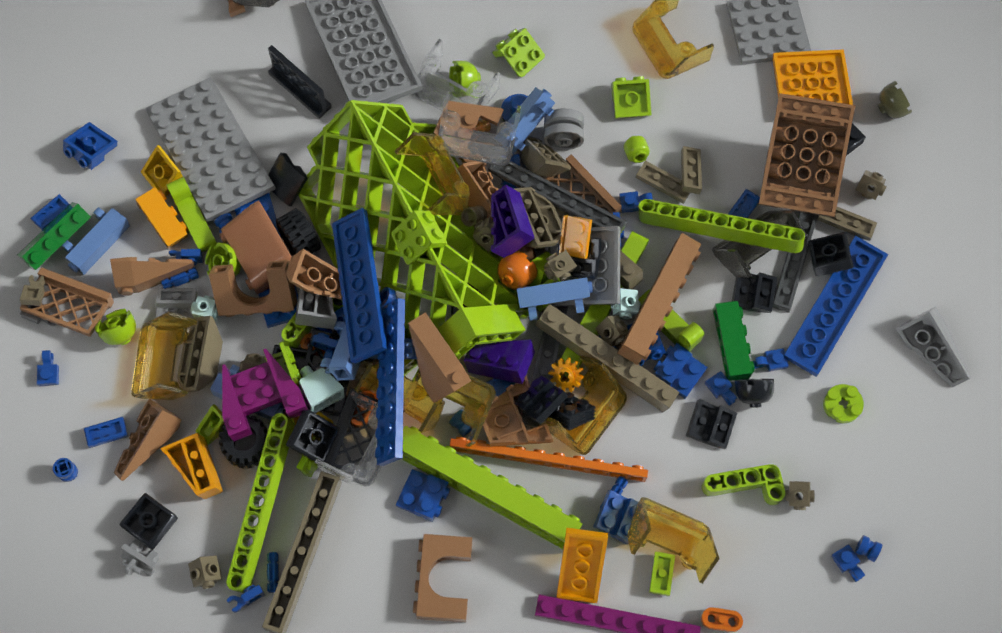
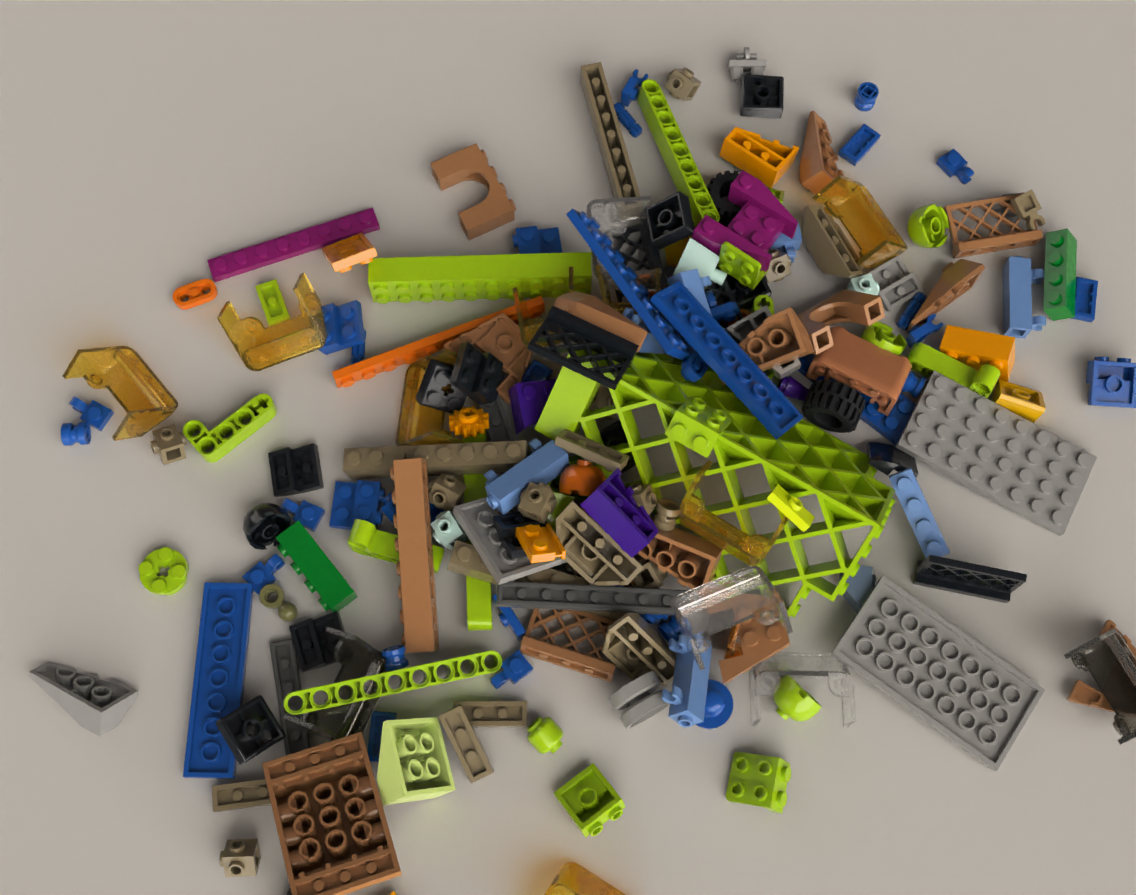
camera: 150 degrees right, 0 degrees up
(297, 134) = (919, 513): none -> medium blue plate
(398, 147) = (791, 507): none -> neon yellow plate
(452, 340) = (588, 338): none -> black fence
(498, 280) = (591, 450): none -> dark tan plate
(710, 242) = (395, 657): none -> blue wheel
(732, 169) = (413, 761): none -> yellowish green slope
(767, 324) = (286, 611): none -> olive plate
(805, 561) = (130, 382): none -> clear yellow windscreen

